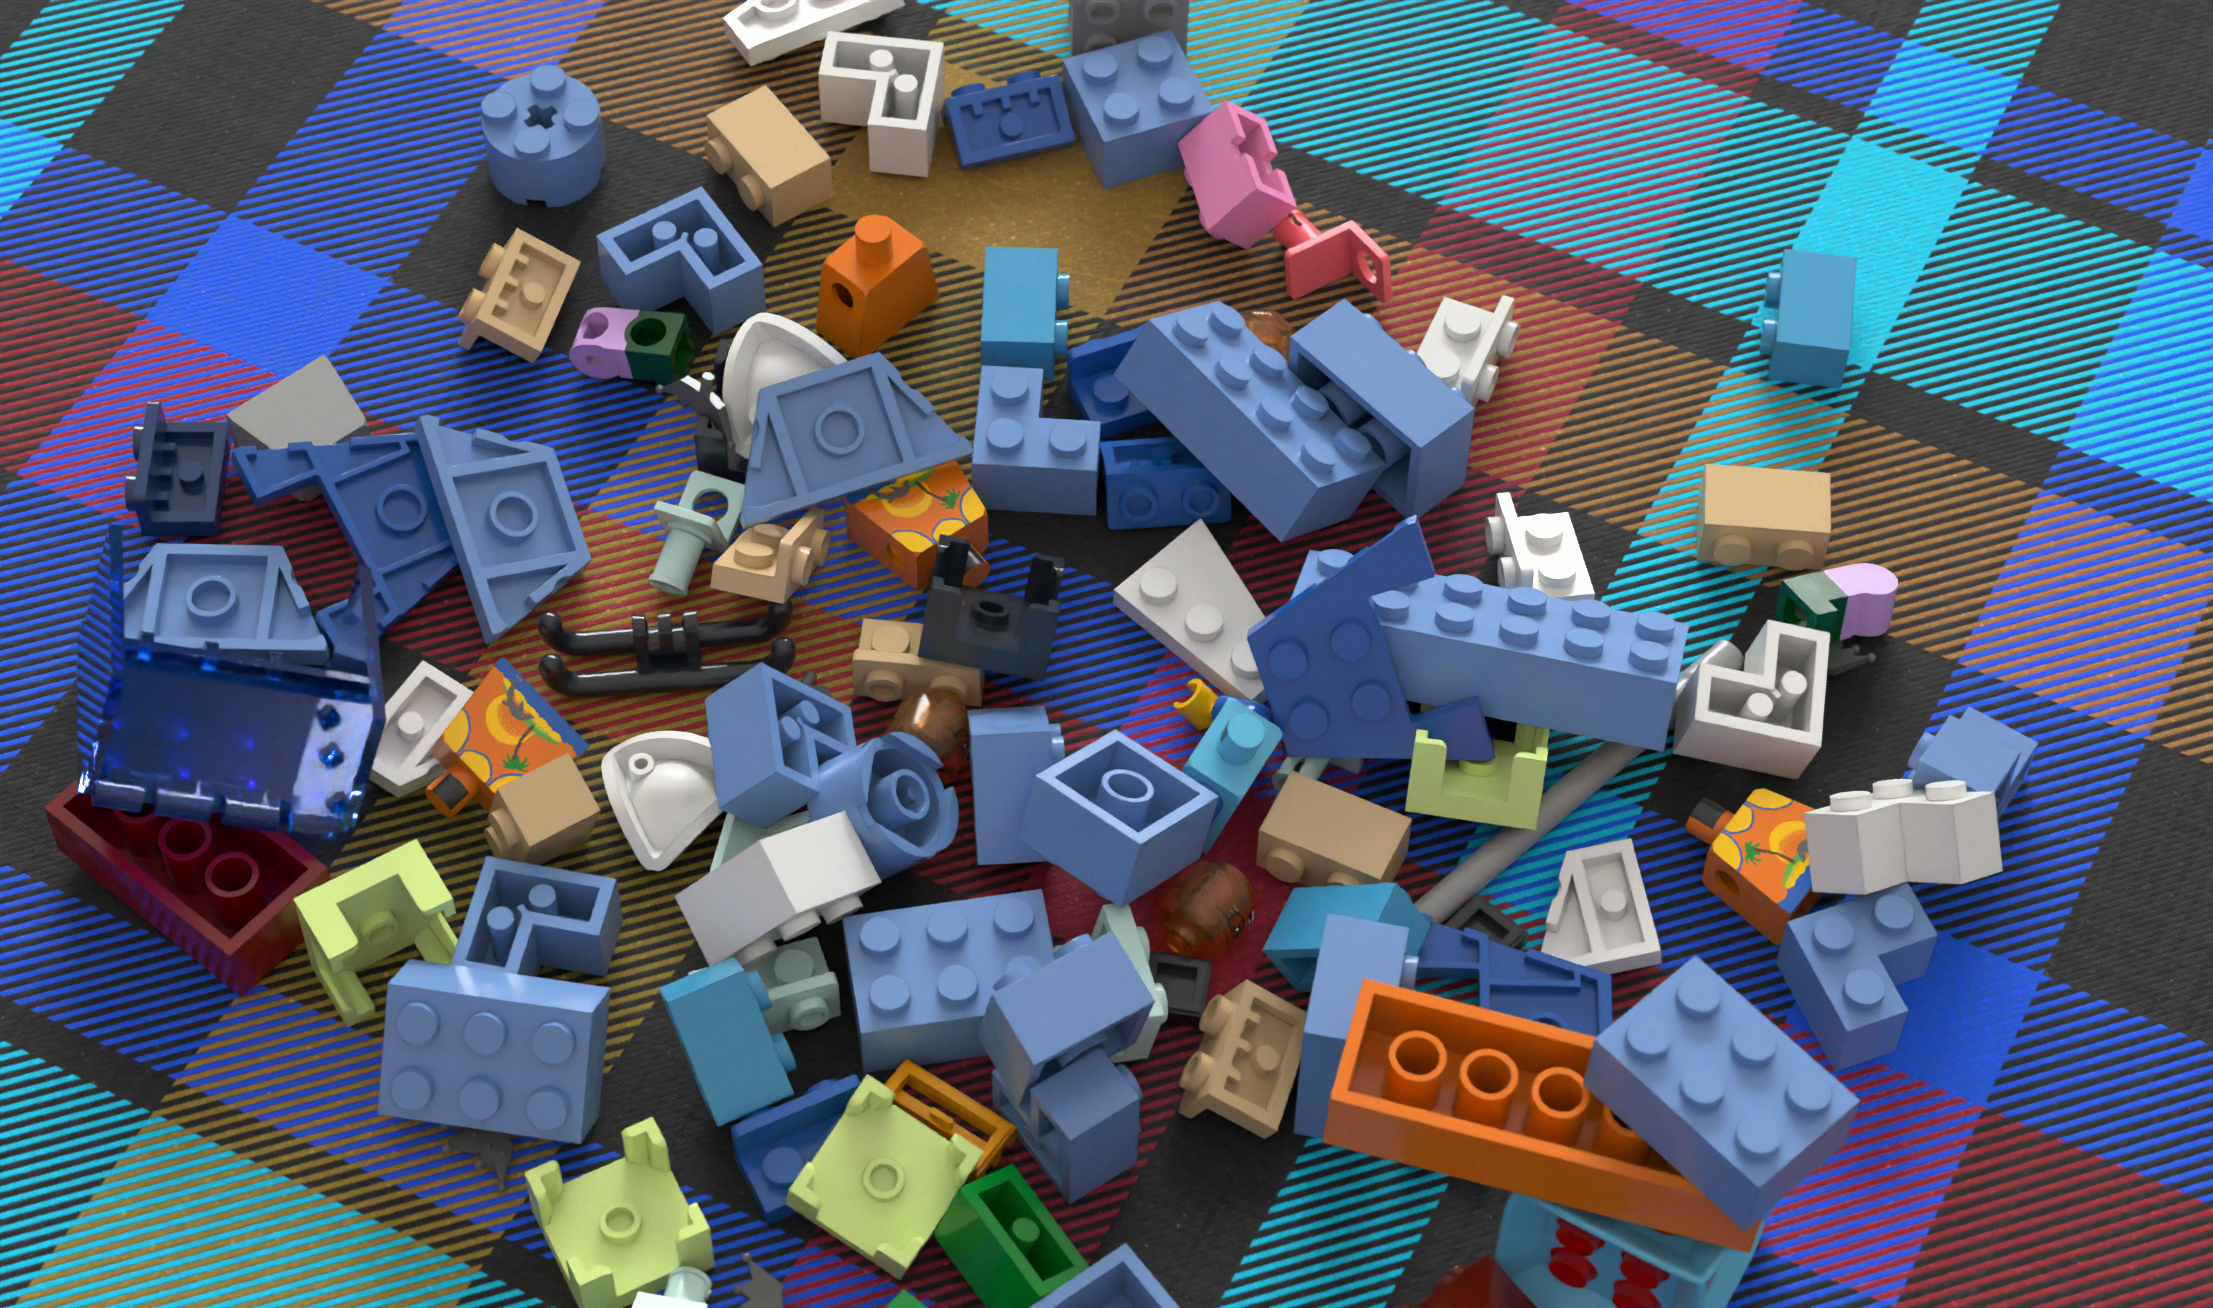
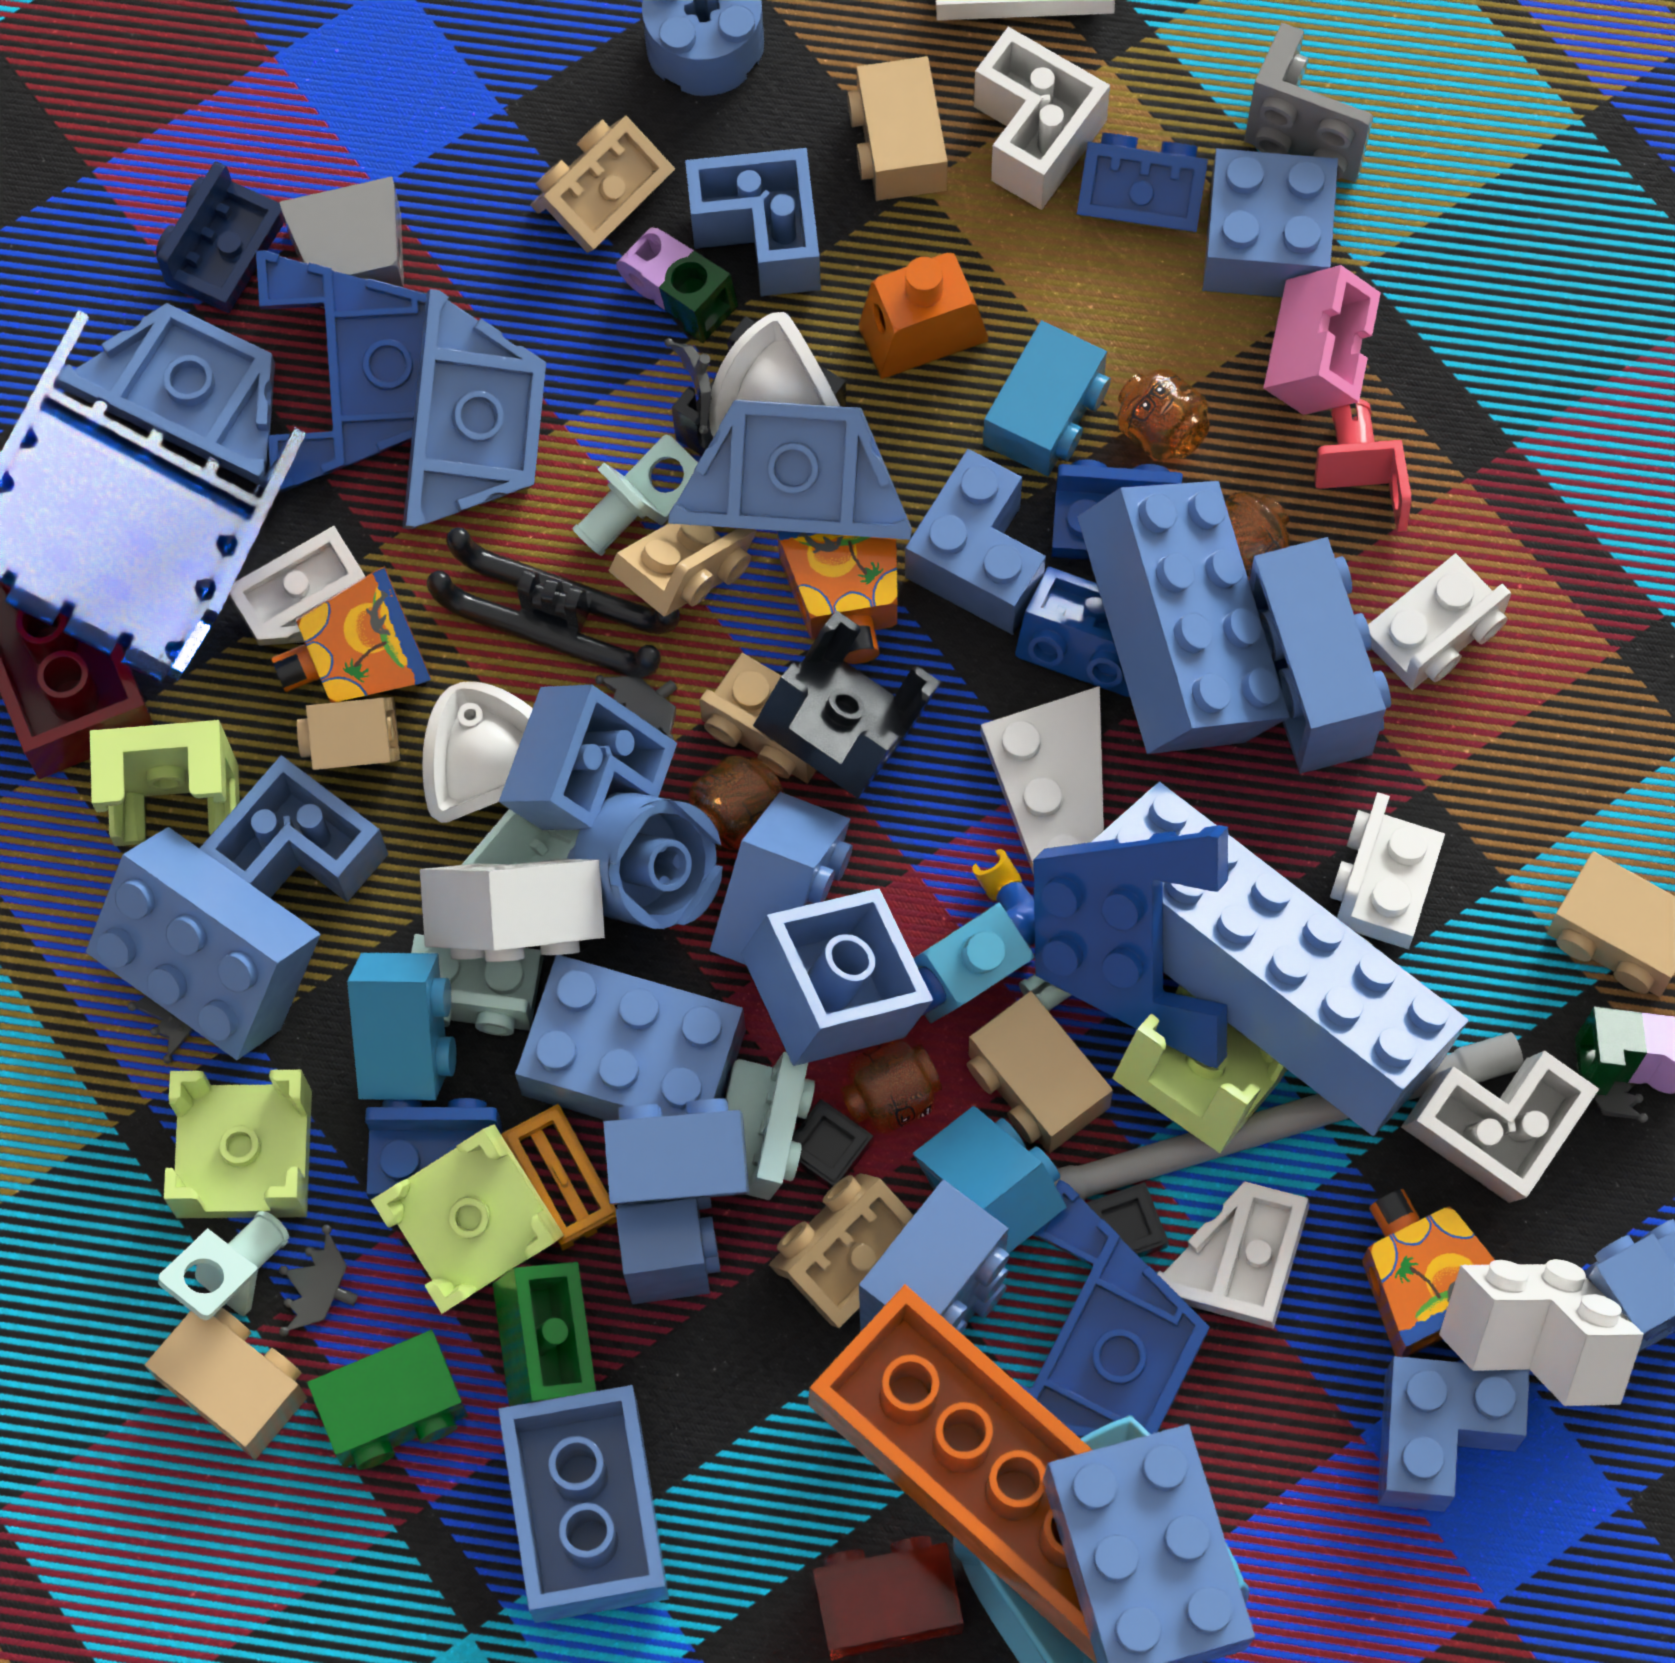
camera: 30 degrees right, 15 degrees up
(1131, 284) = (1163, 414): none -> clear orange head

